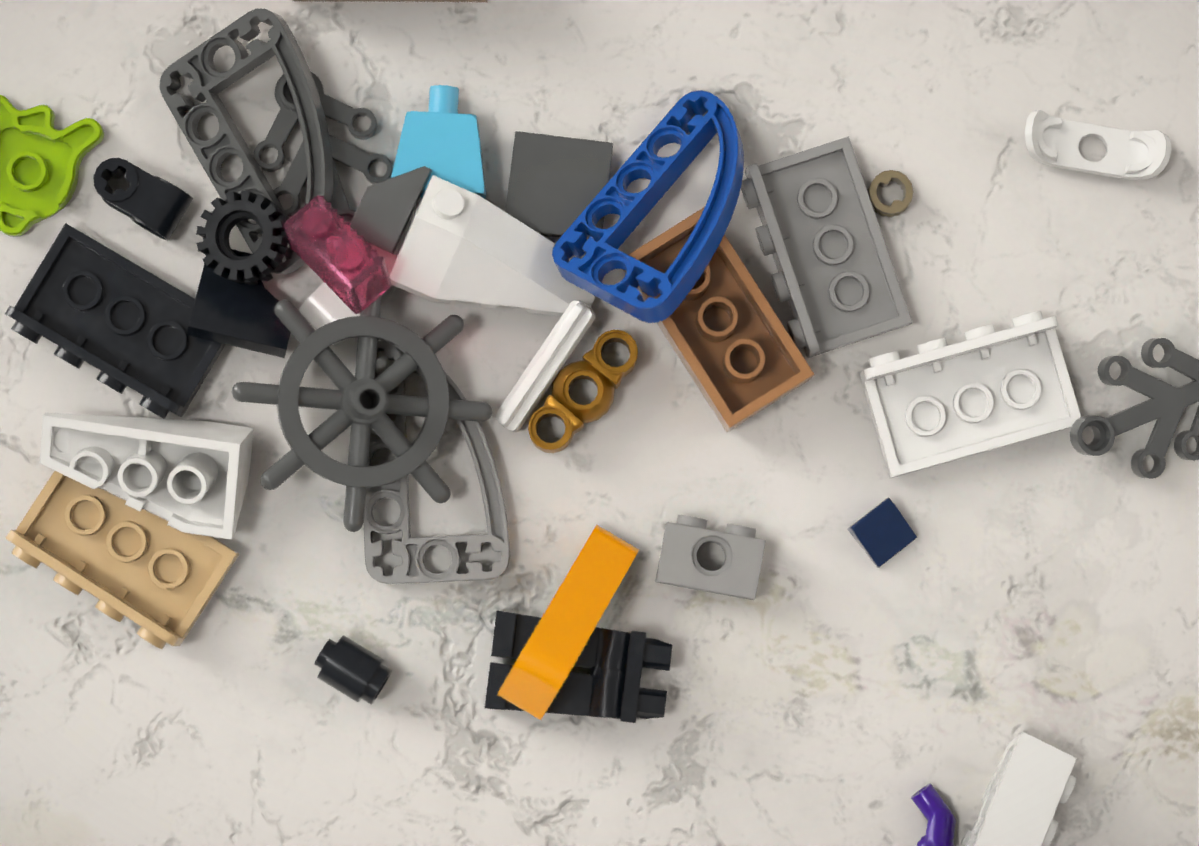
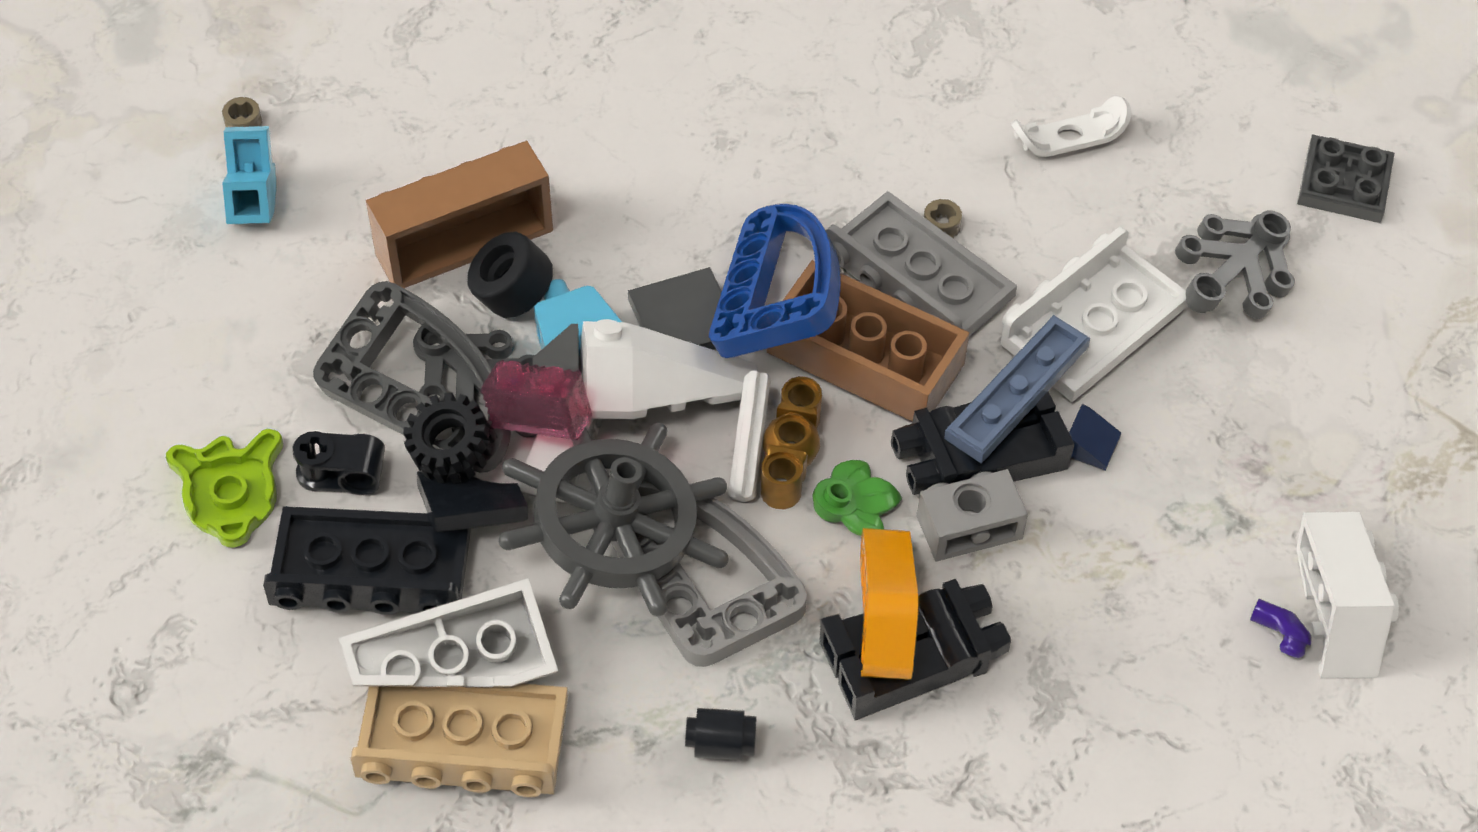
camera: 30 degrees left, 30 degrees down
(389, 40) = (510, 274): none -> black tyre
(622, 482) = (854, 497): none -> bright green plate
(738, 461) = (1032, 449): none -> black hips
(828, 457) = (1017, 389): none -> sand blue tile

